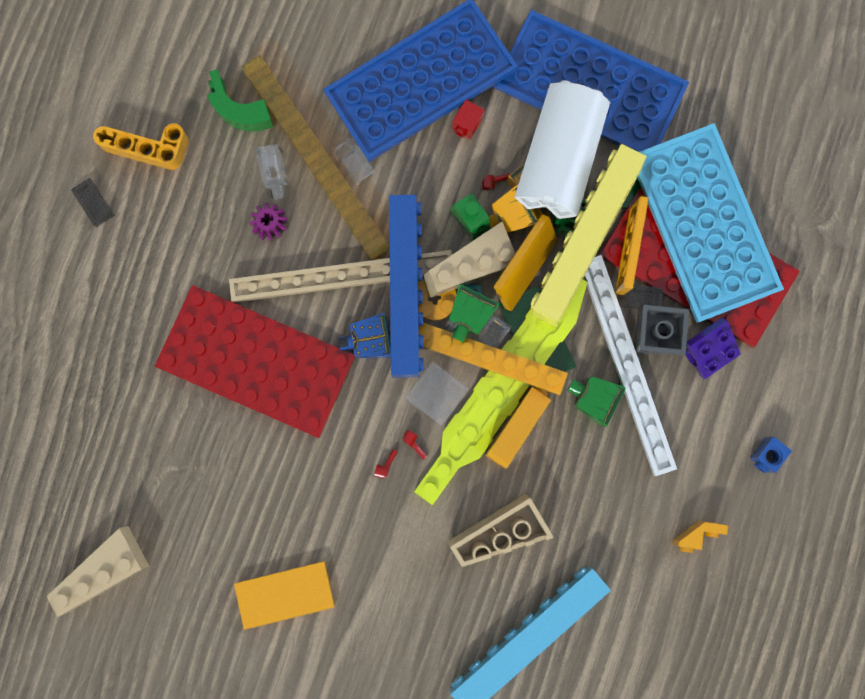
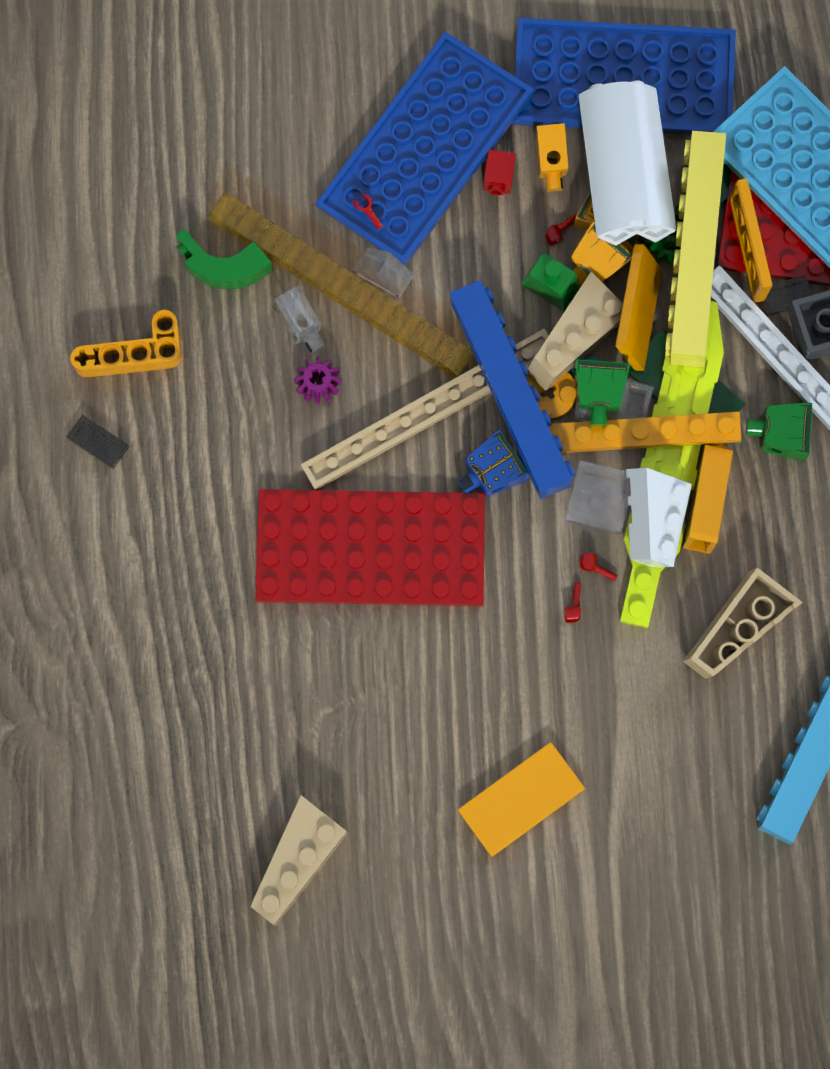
camera: 20 degrees left, 5 degrees down
(357, 110) = (368, 210): none -> red hand
(471, 427) = (657, 516): none -> white wedge
(512, 114) = (551, 144): none -> light orange torso

